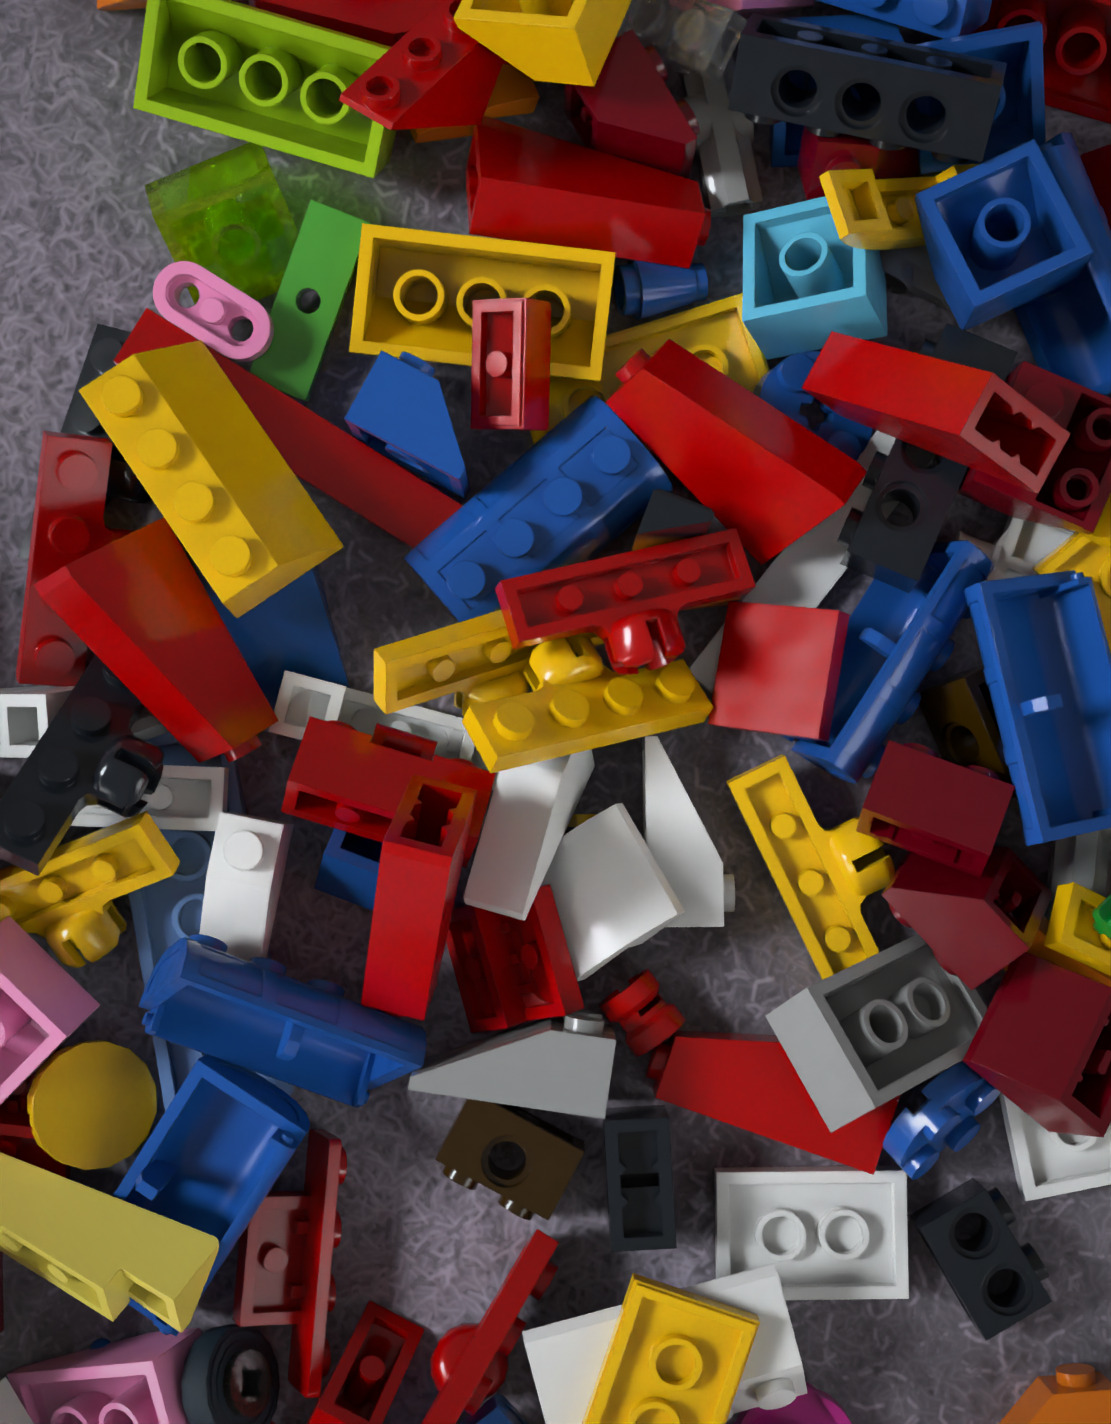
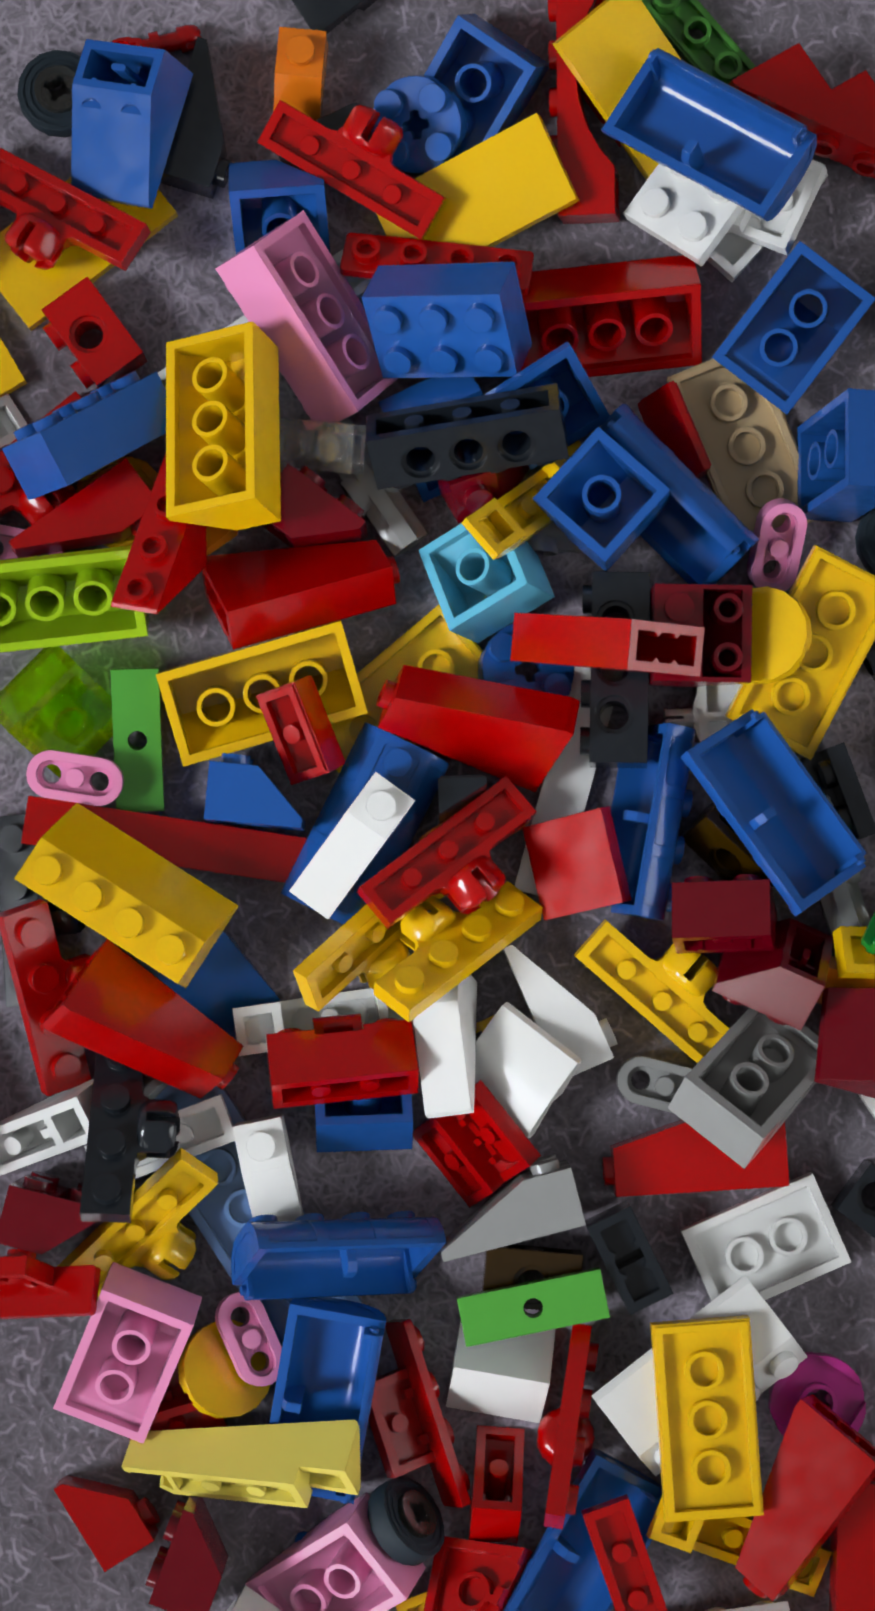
camera: 25 degrees left, 0 degrees up
(133, 1080) = (251, 1337): none -> bright pink plate
(416, 896) = (394, 1128): red slope -> none
(428, 1243) = (503, 1376): none -> white slope
(515, 526) = (352, 845): none -> white slope
(539, 1197) = (564, 1299): none -> bright green tile
(652, 1023) = (591, 1149): red wheel -> none
(653, 288) = (377, 627): blue cone -> none
(766, 985) = (662, 1085): none -> light grey plate
(940, 1121) = (822, 1128): blue plate -> none

